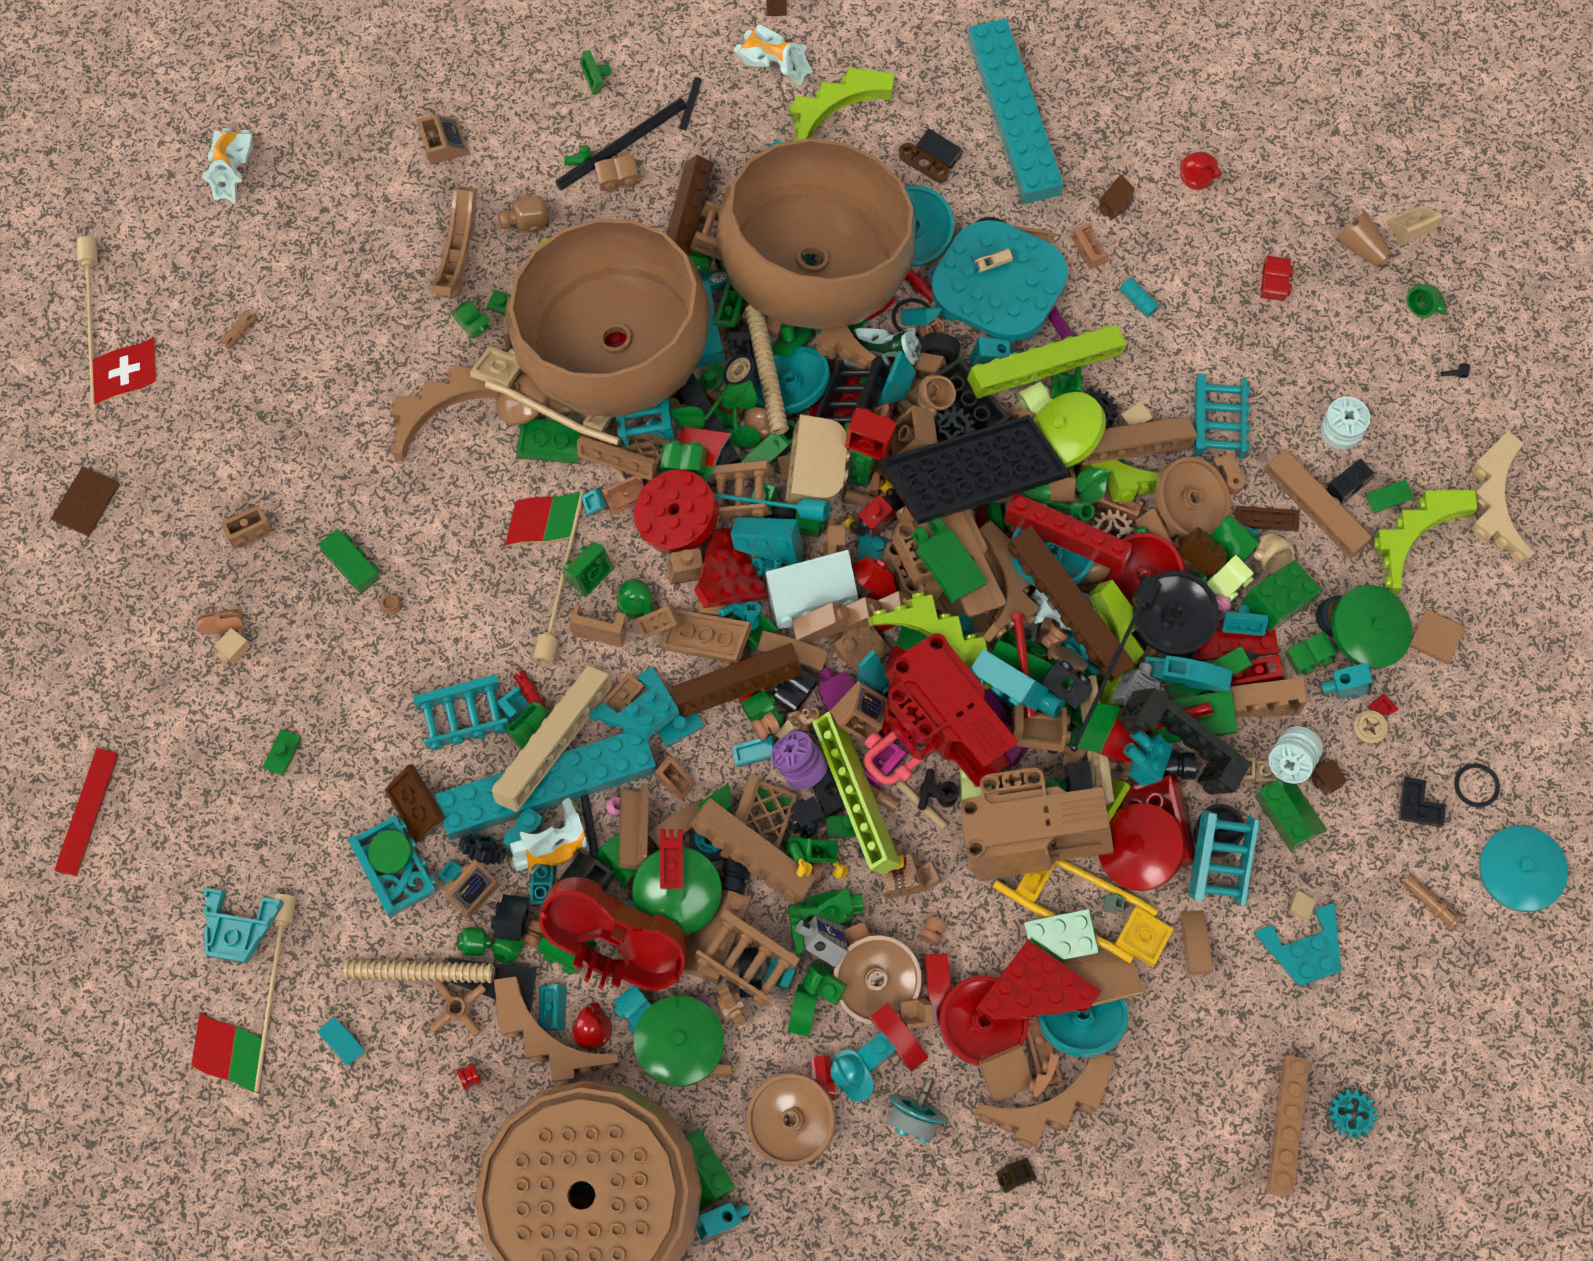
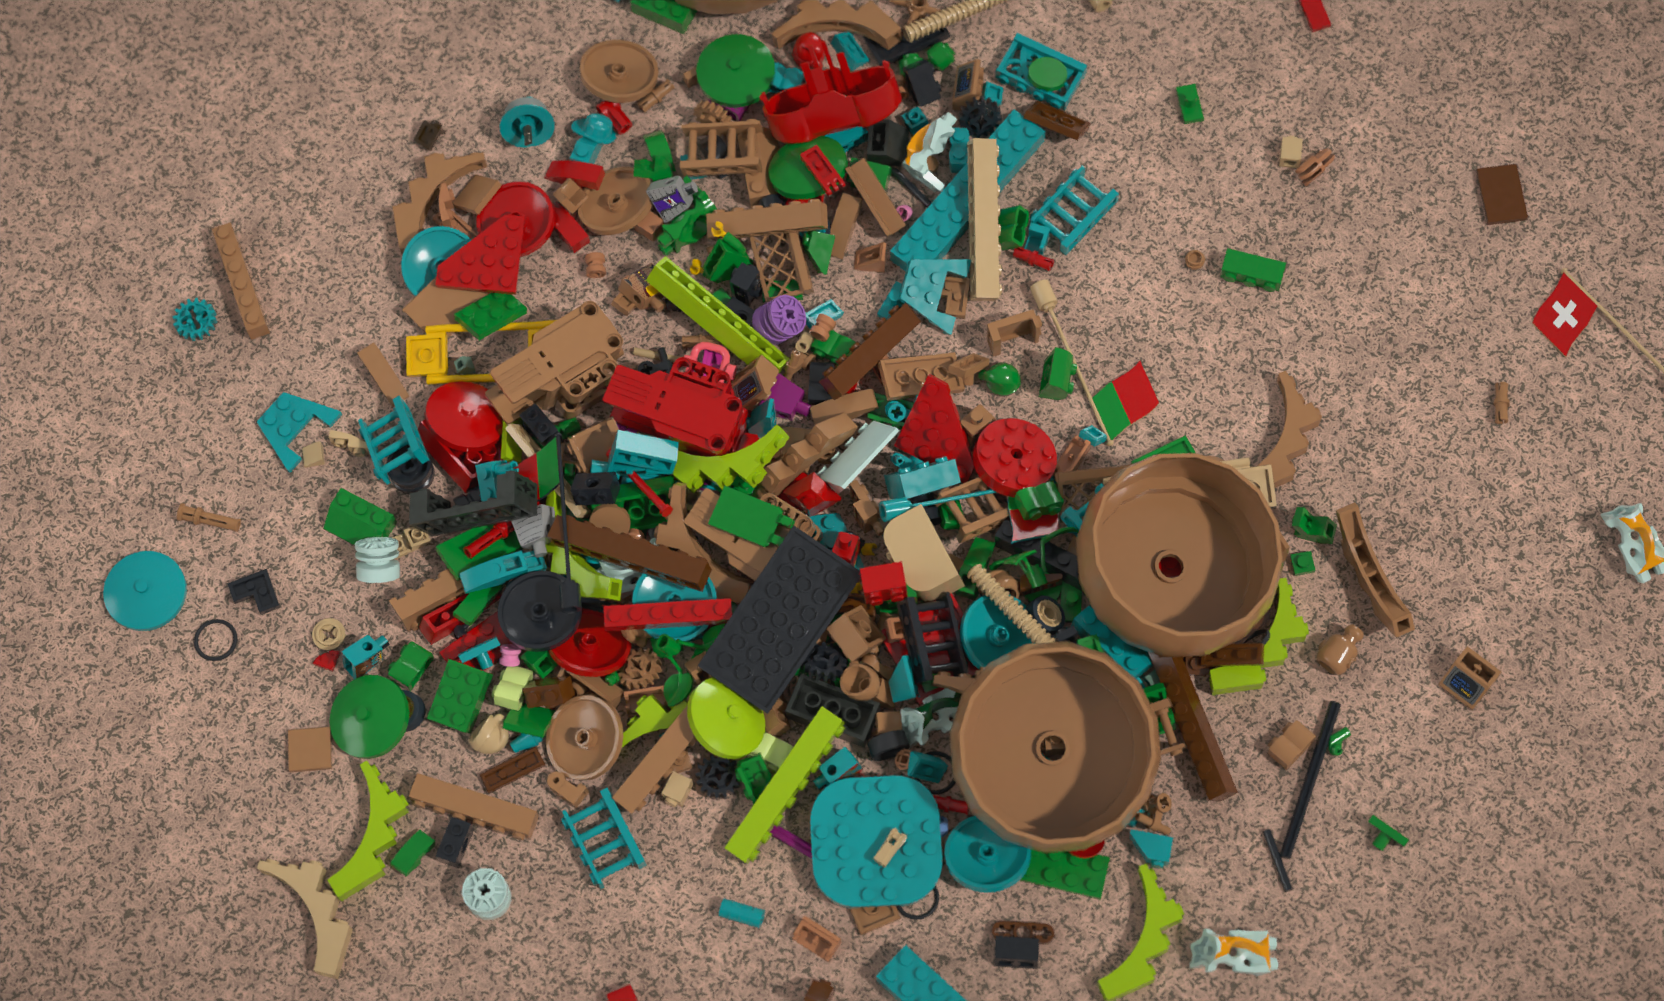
camera: 155 degrees right, 0 degrees up
(246, 527) = (1357, 239): medium nougat brick -> none
(762, 1076) = (656, 96): none -> medium nougat pin
(1267, 901) = (355, 445): none -> tan slope
(1328, 777) = (342, 567): reddish brown brick -> none

